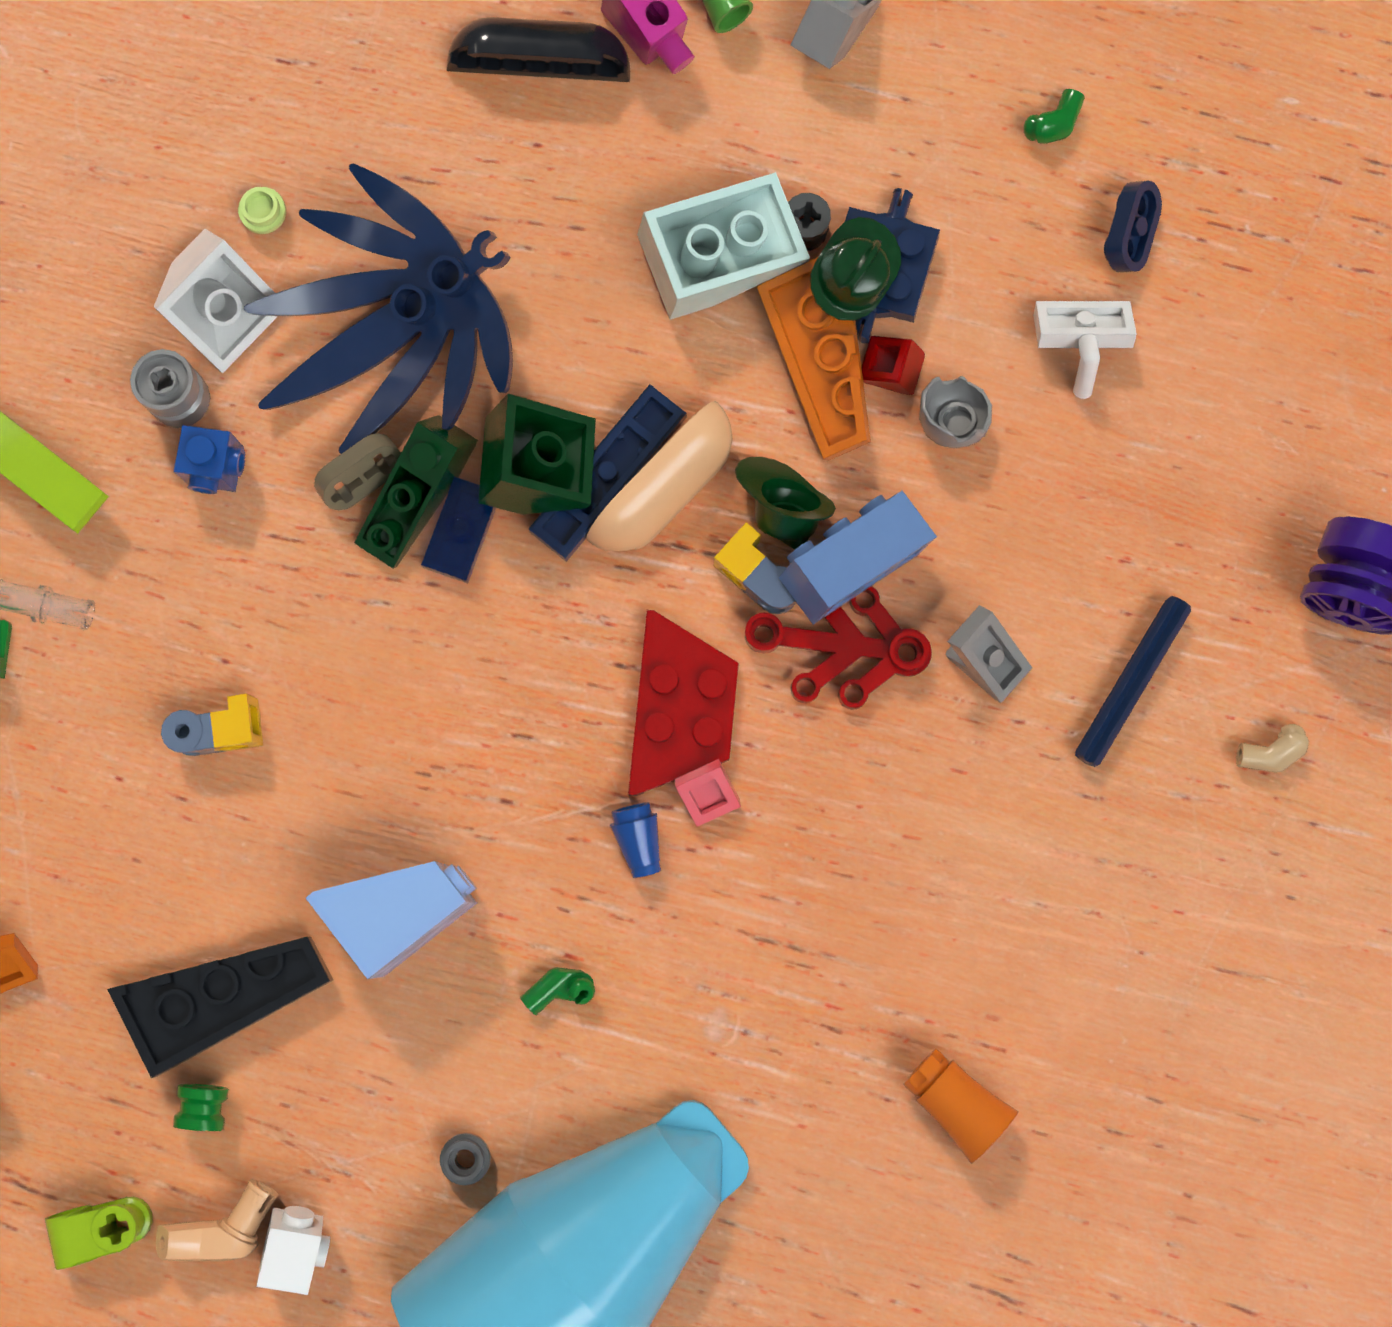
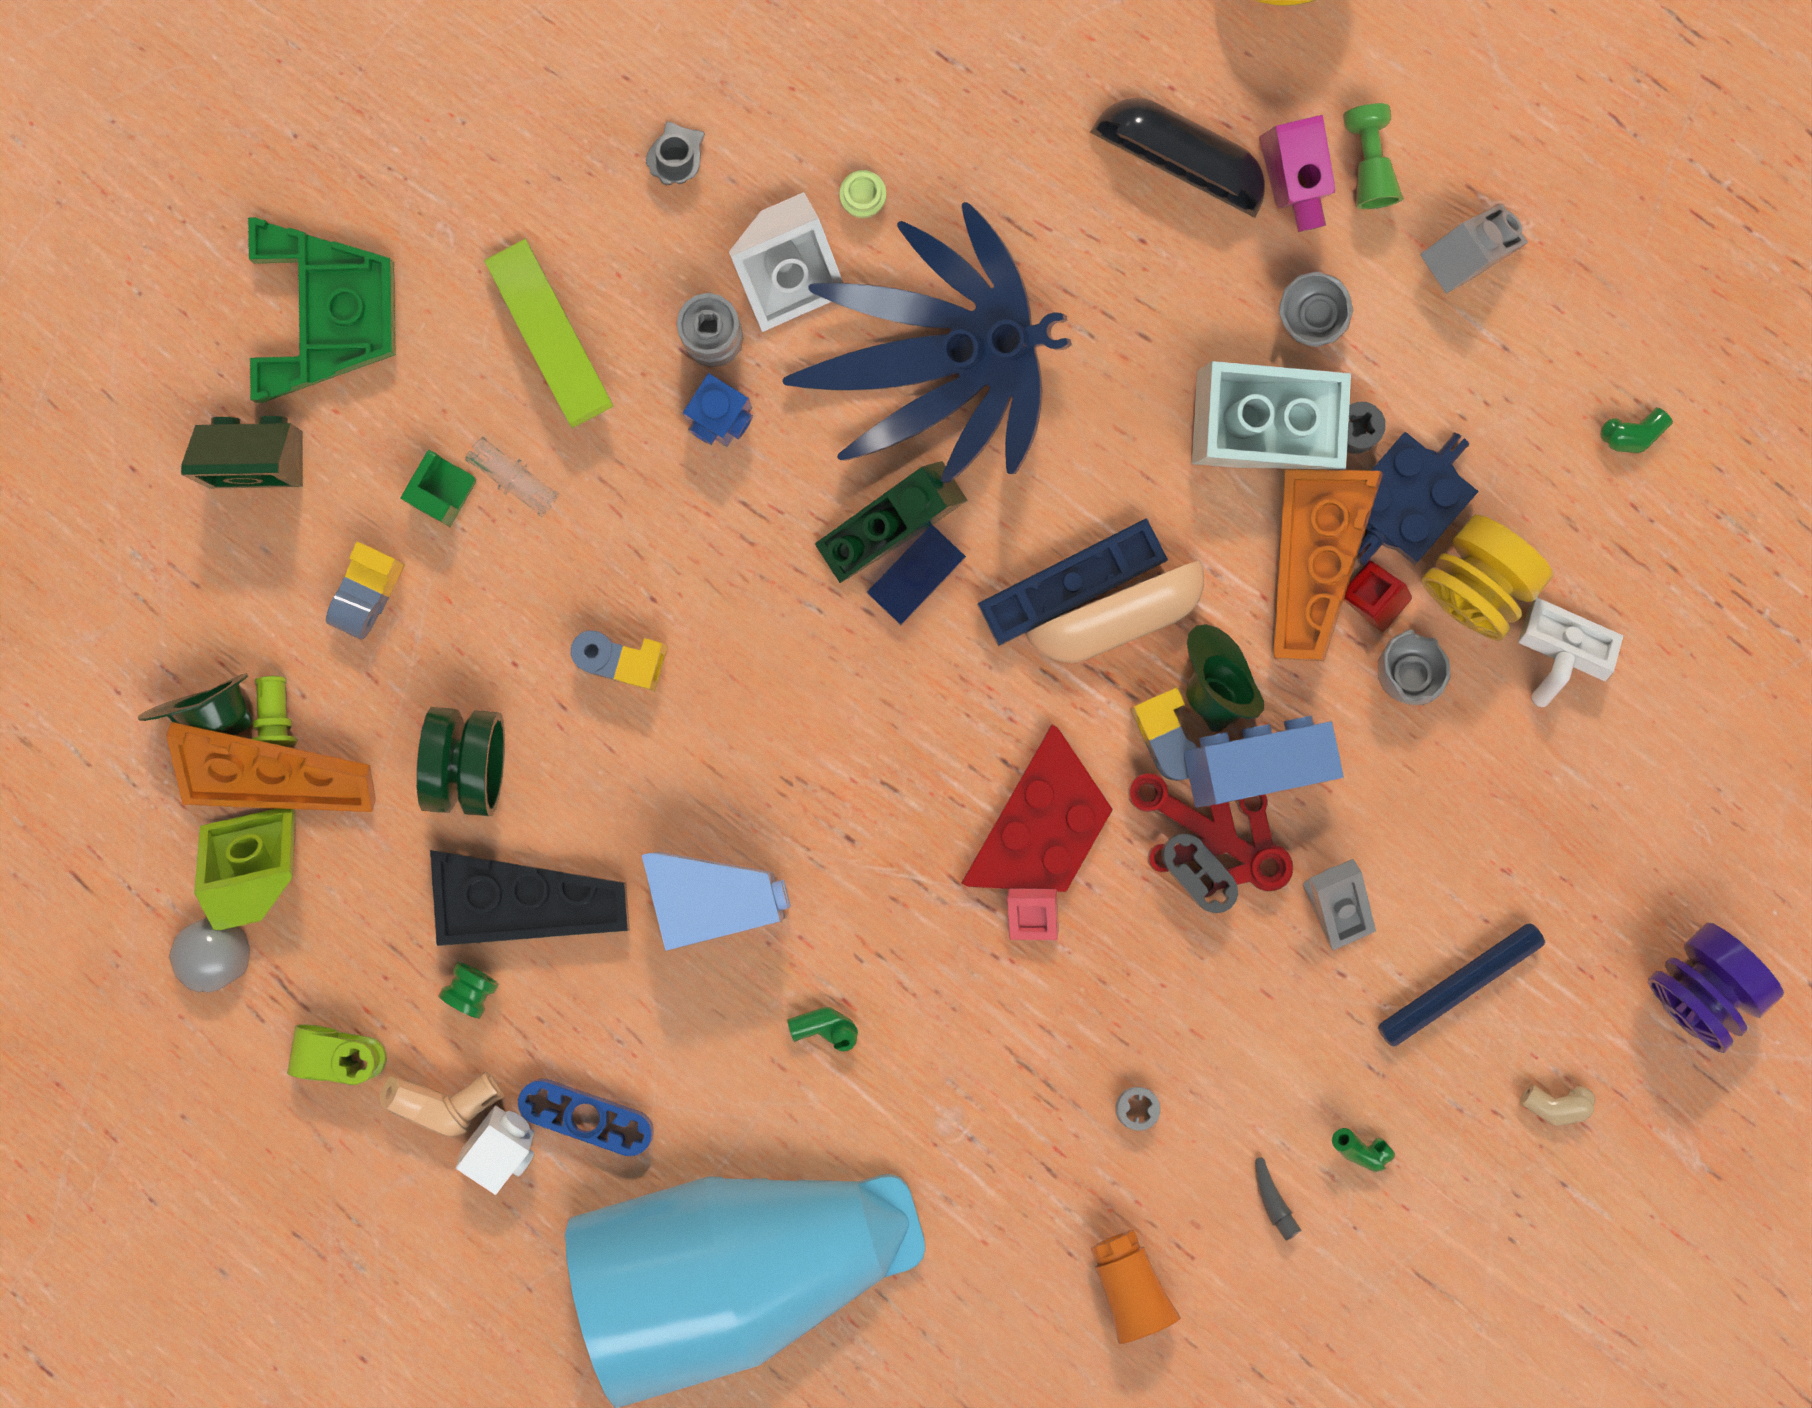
camera: 25 degrees right, 5 degrees up
(73, 248) = (675, 154): none -> animal
(98, 889) = (460, 761): none -> dark green wheel
(329, 1169) = (556, 1095): none -> blue beam
(357, 472) = (846, 481): dark tan beam -> none
(450, 1165) = (675, 1153): flat silver plate -> none
(536, 458) = (1013, 543): dark green slope -> none
(637, 837) = (952, 926): blue cone -> none
(719, 132) = (1316, 309): none -> light grey hair
(850, 674) = (1208, 865): none -> dark grey beam
(855, 269) = (1383, 497): dark green piece -> none
(902, 928) = (1152, 1110): none -> light grey bush
(983, 298) = (1491, 570): none -> yellow wheel
(1056, 964) = (1274, 1204): none -> dark grey helmet
(1103, 877) = (1356, 1151): none -> green arm
(1133, 226) = (1659, 567): dark blue plate -> none

